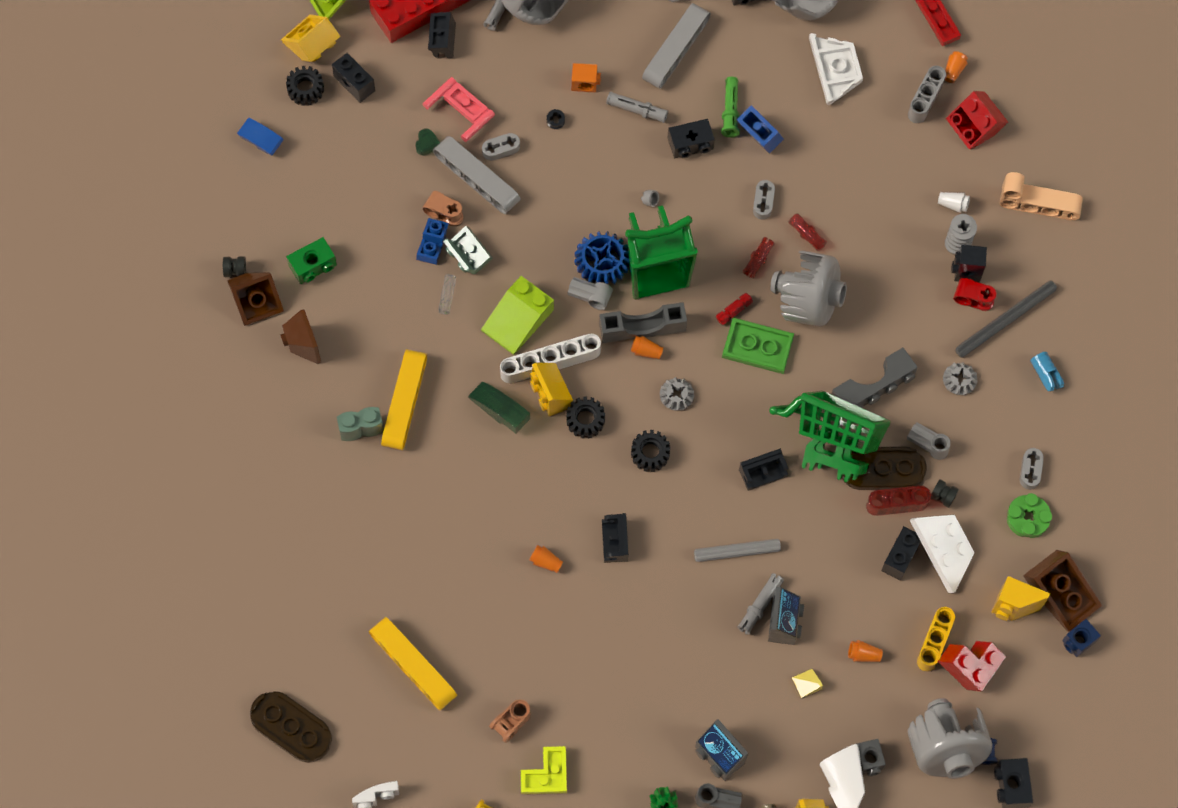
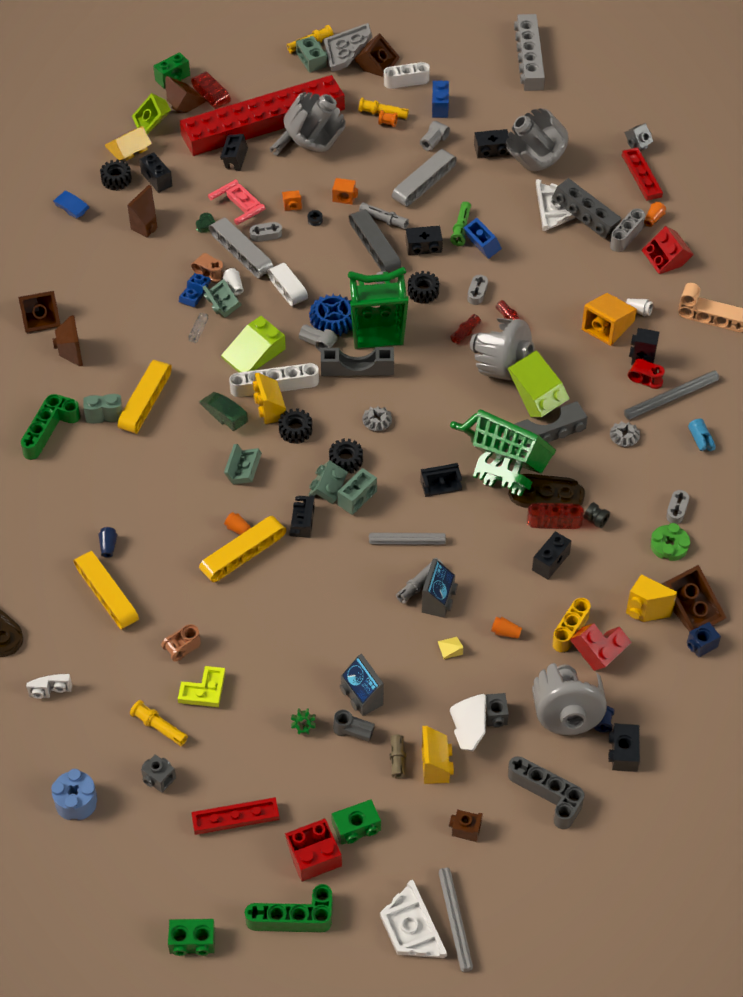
camera: 10 degrees right, 15 degrees down
(237, 264) = (26, 288): pearl dark grey wheel -> none
(298, 457) = (53, 410): none -> green beam
(318, 251) = (91, 291): green brick -> none
(352, 143) = (142, 213): none -> reddish brown slope
(401, 600) = (107, 541): none -> dark blue cone
(476, 222) = (233, 279): none -> white cone
(523, 97) = (292, 200): none -> orange bracket
(535, 479) = (242, 464): none -> sand green bracket
(541, 221) = (287, 284): none -> white beam
(556, 589) = (242, 549): none -> yellow beam
(633, 146) = (374, 241): none -> dark grey beam
(635, 488) = (328, 481): none -> sand green bracket
(646, 348) = (356, 381): orange cone -> none
(672, 499) = (357, 491): none -> sand green brick
(703, 194) = (423, 279): none -> black tyre
(734, 308) = (438, 363): red axle -> none
(758, 345) = (453, 392): bright green tile -> none
(856, 334) = (537, 385): none -> lime slope
(875, 72) = (586, 208): none -> dark grey brick
(921, 224) = (607, 318): none -> light orange slope
(928, 439) = (593, 476): light grey piece -> none
(945, 546) = (590, 552): white wing -> none
(960, 232) = (640, 318): light grey piece -> none

